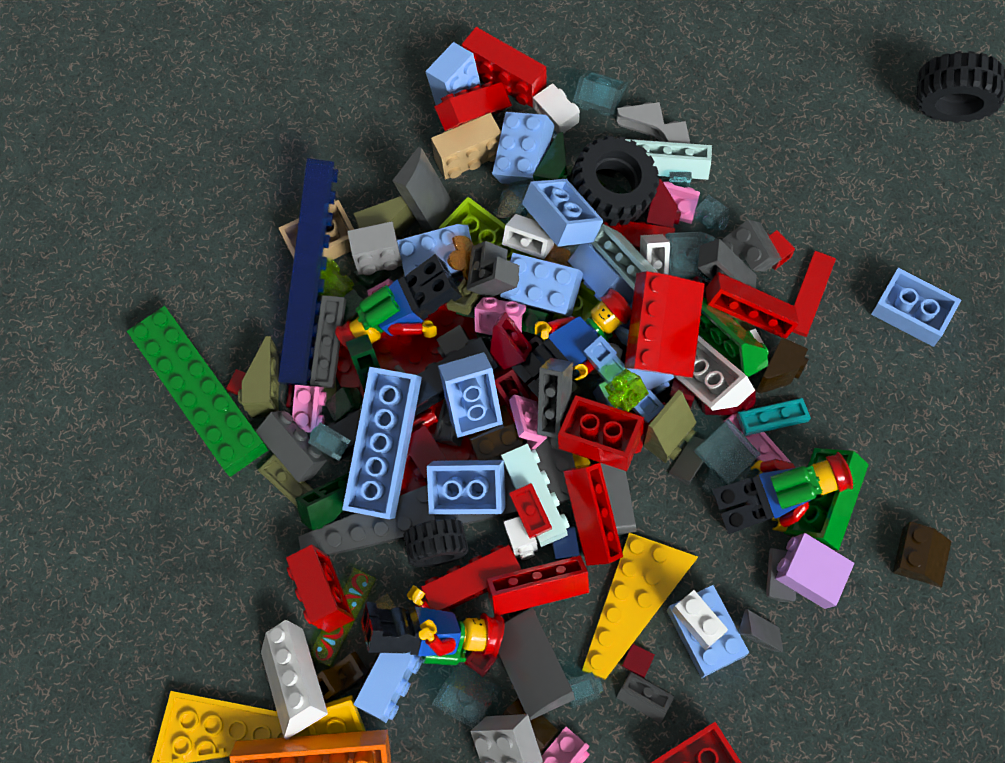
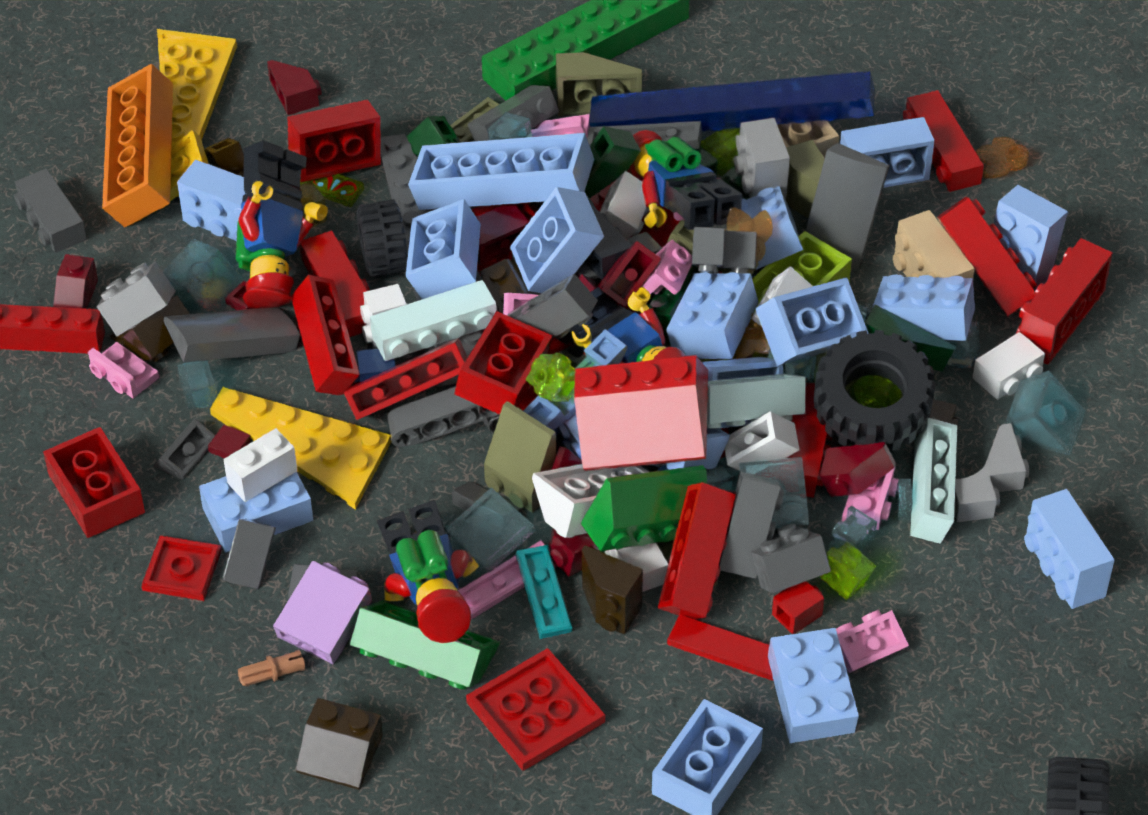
camera: 85 degrees right, 20 degrees down
(236, 634) = (293, 87): none -> dark red slope
(292, 678) = (233, 117): white slope -> none
(332, 137) = (952, 152): none -> red brick
(344, 104) = (1002, 157): none -> clear orange plate
(353, 172) = (901, 144): none -> light blue brick
(404, 355) = (625, 205): none -> white brick
(530, 511) = (406, 299): red plate -> none
(725, 81) = (1068, 549): none -> light blue brick
(746, 210) = (848, 570): none -> clear neon green brick
(765, 688) = (181, 568): none -> red tile
(798, 209) = (871, 640): none -> bright pink bracket
(847, 241) = (812, 685): none -> light blue brick
(858, 610) = (271, 668): none -> nougat axle
(876, 421) = (535, 709): none -> red plate

